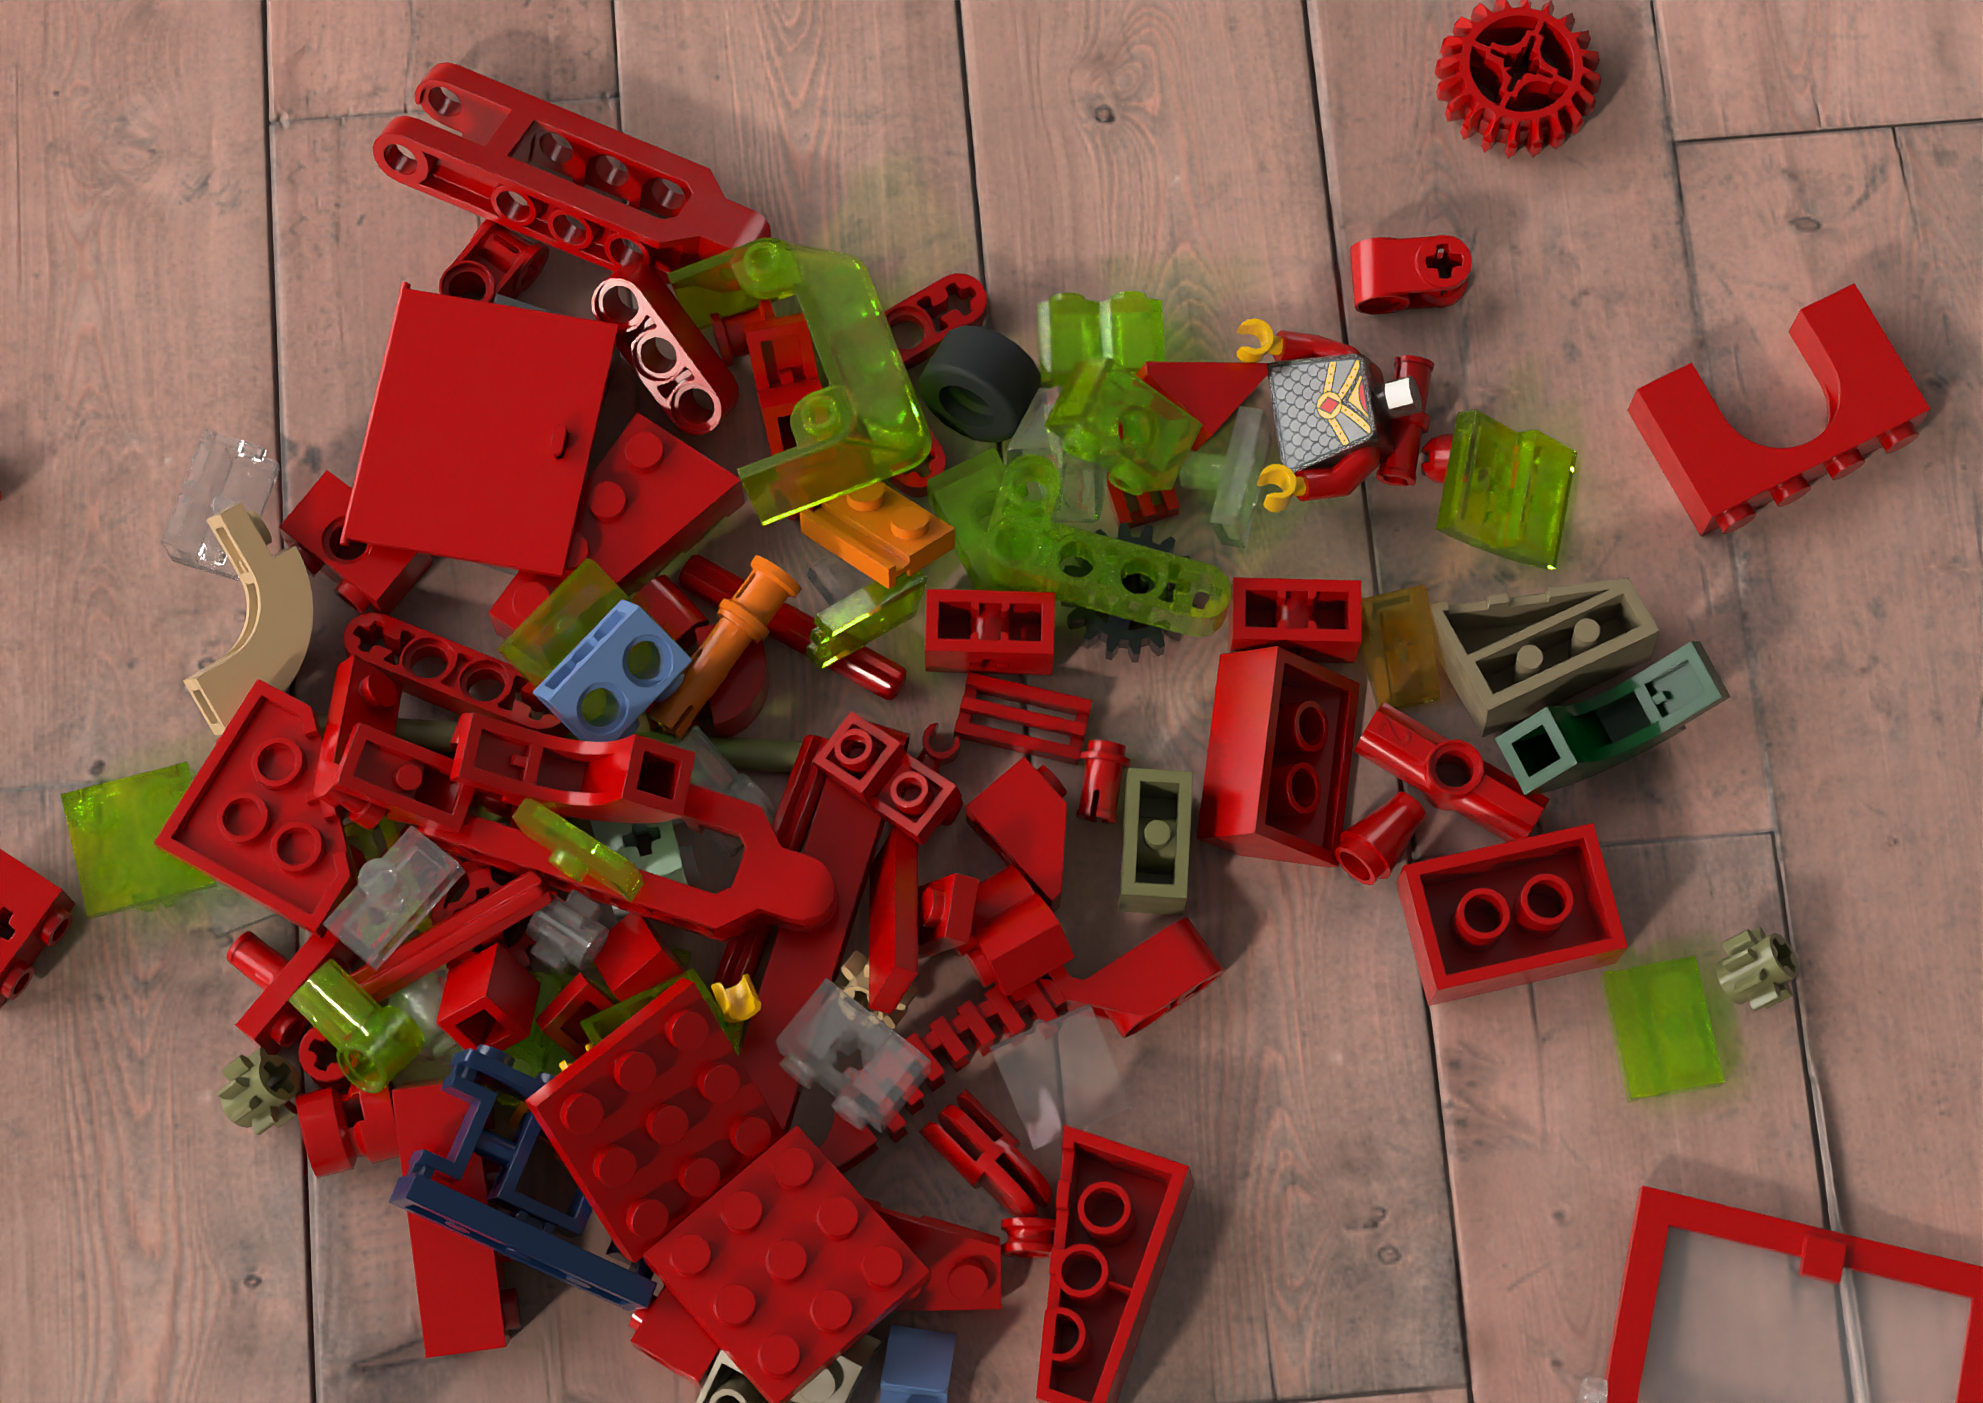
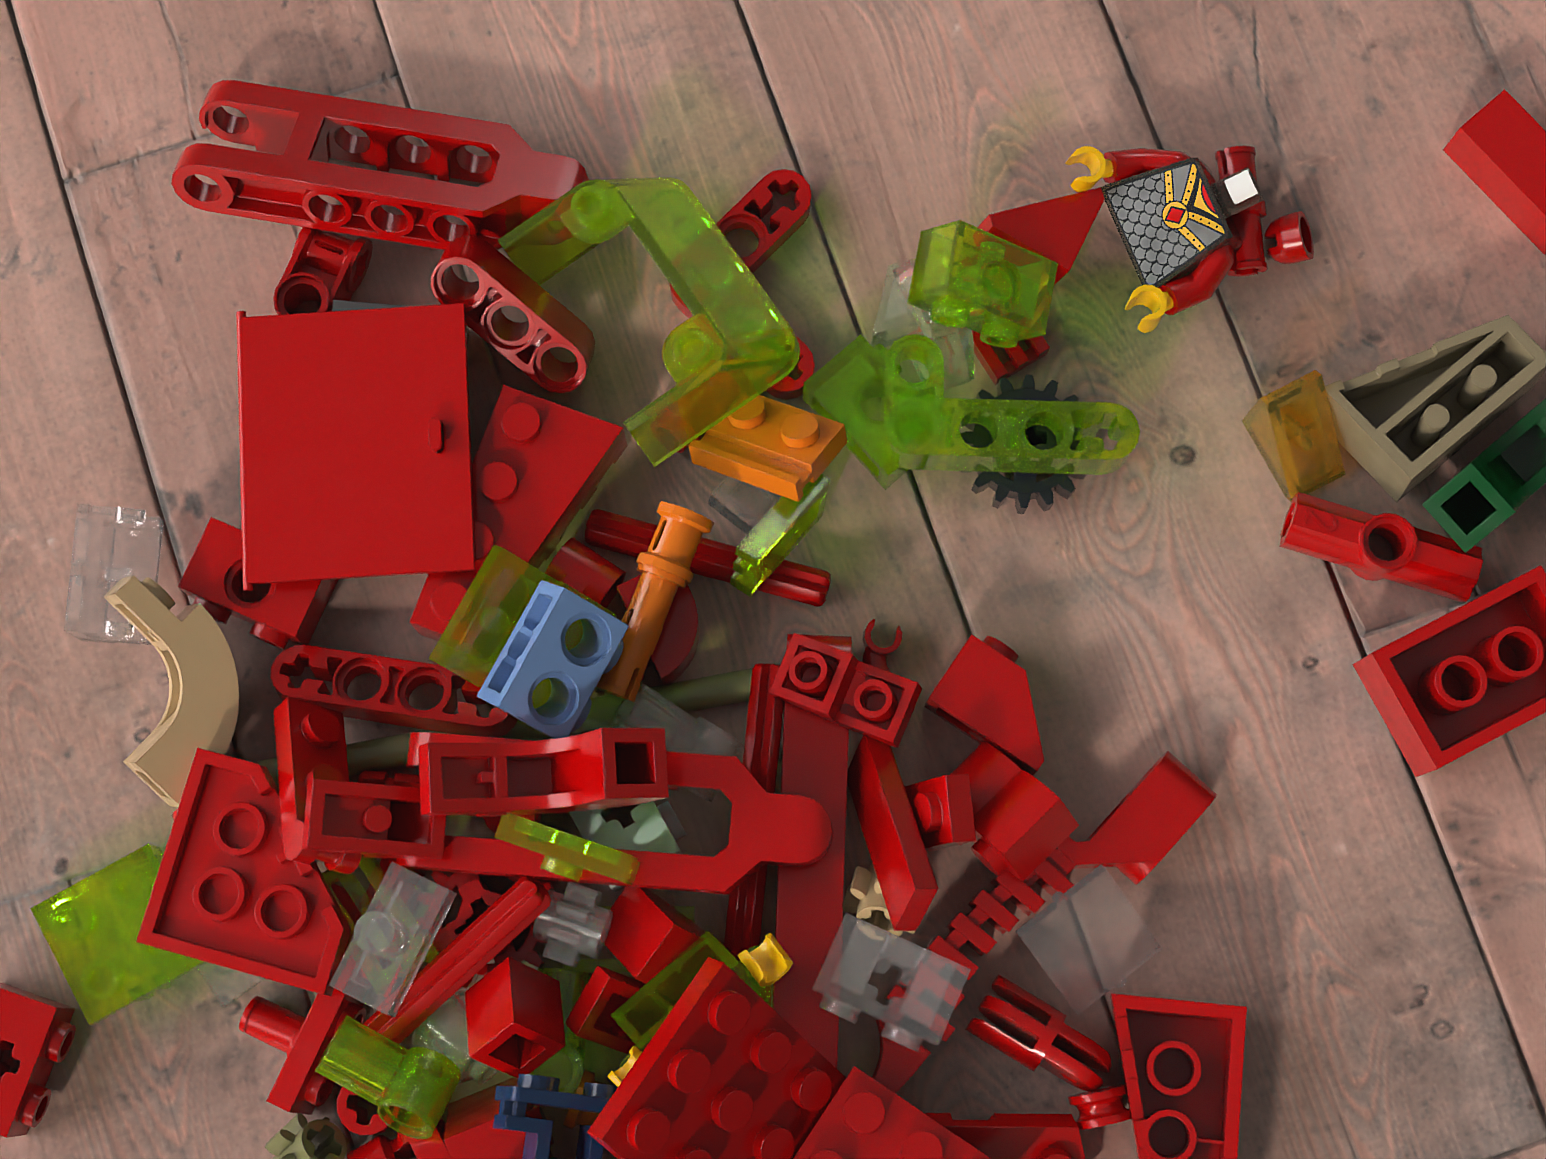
camera: 15 degrees left, 5 degrees up
(730, 330) = (586, 277): red bush -> none
(782, 373) = (636, 317): red brick -> none
(980, 383) = (828, 274): black tyre -> none
(989, 631) = (904, 517): red brick -> none
(1028, 695) = (953, 567): red tile -> none
(1081, 329) = (918, 198): clear neon green brick -> none
(1101, 780) = (1047, 631): red pin -> none
(1156, 841) = (1120, 685): olive brick -> none
(1233, 475) = (1094, 305): clear tile -> none
(1278, 758) = (1210, 571): red slope -> none
(1300, 615) = (1198, 433): red brick -> none
(1377, 841) = (1328, 627): red cone -> none
(1400, 273) = (1198, 70): red piece -> none
(1506, 490) = (1356, 255): clear neon green slope -> none

